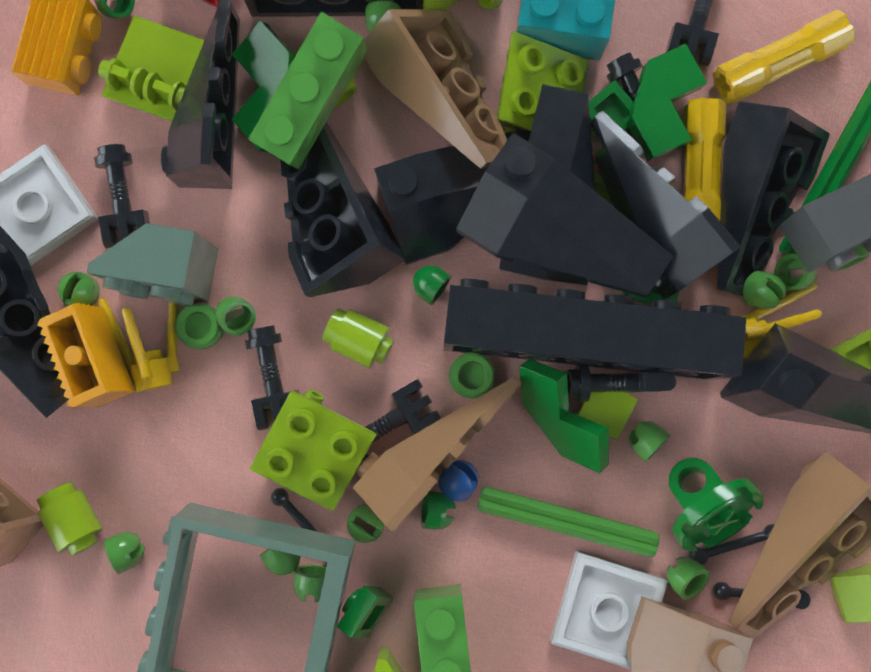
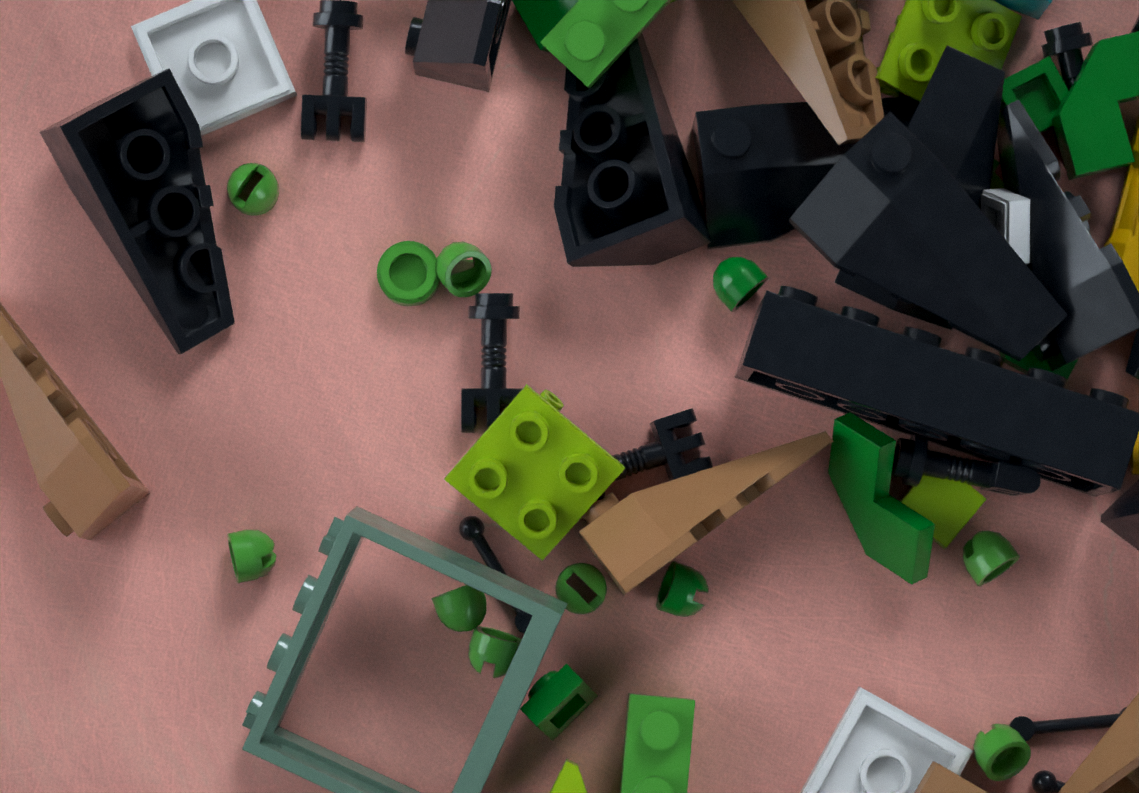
camera: 10 degrees right, 0 degrees up
(69, 519) = (186, 495): lime brick -> none
(86, 355) = (258, 282): light orange brick -> none
(147, 368) = (333, 317): yellow plant -> none
(160, 261) = (383, 178): sand green slope -> none
(358, 337) = (624, 335): lime brick -> none
(458, 481) = (720, 556): blue hinge -> none
(471, 375) = (766, 418): bright green tile -> none
(568, 521) = (856, 643): bright green axle -> none
(615, 192) = (1010, 216): none -> white tile
(715, 510) = (1054, 668): green tile -> none

